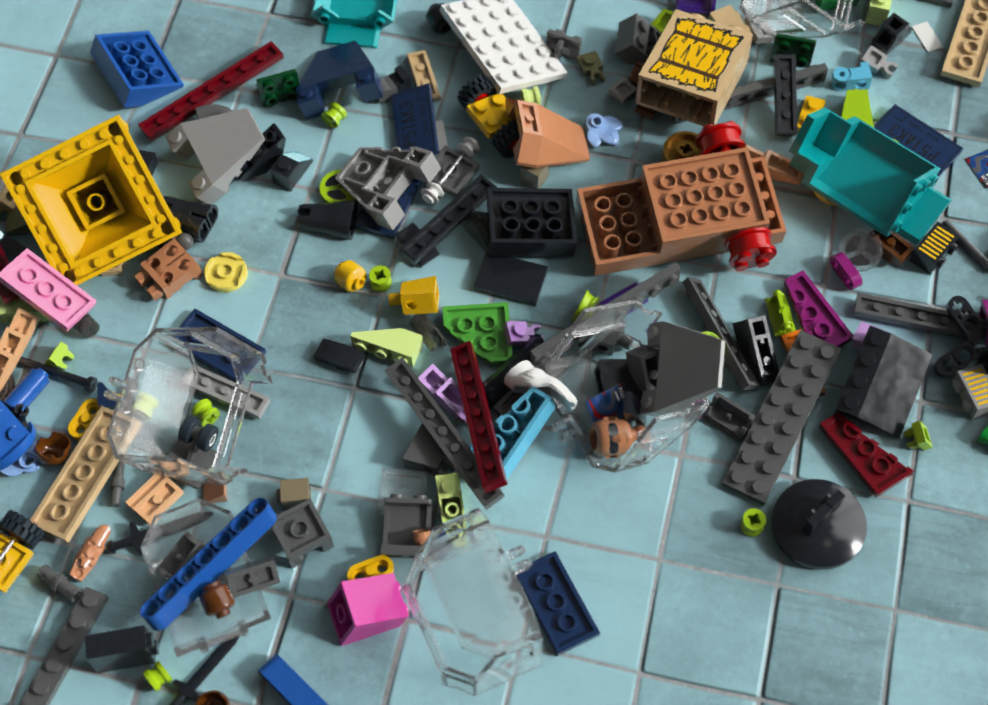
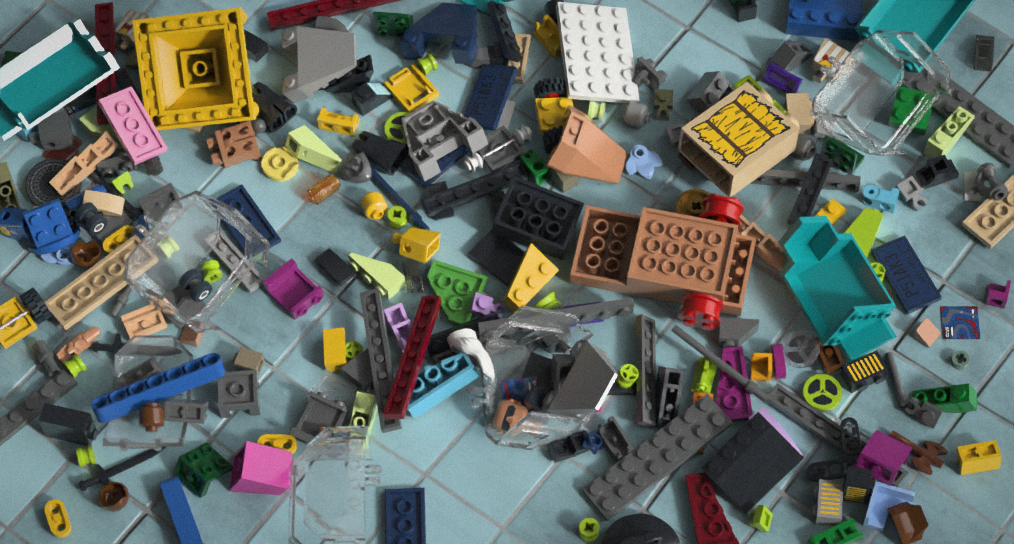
camera: 25 degrees right, 0 degrees up
(40, 343) = (112, 166): none -> dark grey slope
(47, 385) = (105, 202): none -> tan slope
(56, 404) = (98, 224): none -> plate
(97, 578) = (74, 366): none -> lime wheel
(111, 361) = (158, 201): none -> dark grey hinge
(255, 243) = (310, 148): none -> yellowish green slope
(268, 207) = (337, 122): none -> yellow hinge
(287, 280) = (323, 189): none -> clear orange head
(297, 634) = (201, 467): none -> dark green bracket
(305, 397) = (292, 289): none -> magenta panel
(314, 245) = (357, 169): none -> dark grey piece
(326, 144) = (410, 86): none -> yellow container
(384, 441) = (334, 349): none -> yellow hinge
(397, 271) = (414, 217): none -> dark blue bar
(399, 55) = (504, 31): none -> black plate
(405, 432) = (352, 348): none -> lime wheel
(446, 44) = (548, 36): none -> yellow hinge
(498, 173) = (535, 167): none -> green leg
(553, 287) = (529, 278): none -> yellow wedge
(572, 86) = (636, 114): none -> light grey head
(685, 445) = (567, 447): none -> black slope
(707, 428) = (593, 442): none -> dark blue plate
(756, 59) = (805, 148): none -> dark grey head
(788, 258) = (736, 331): none -> dark grey slope
(833, 283) = (761, 366): none -> light orange panel
(836, 306) = (750, 387): none -> dark grey bar
(904, 284) = (822, 392): none -> lime tile
(936, 17) = (996, 191): none -> dark grey piece
(969, 188) = (927, 333): none -> slope

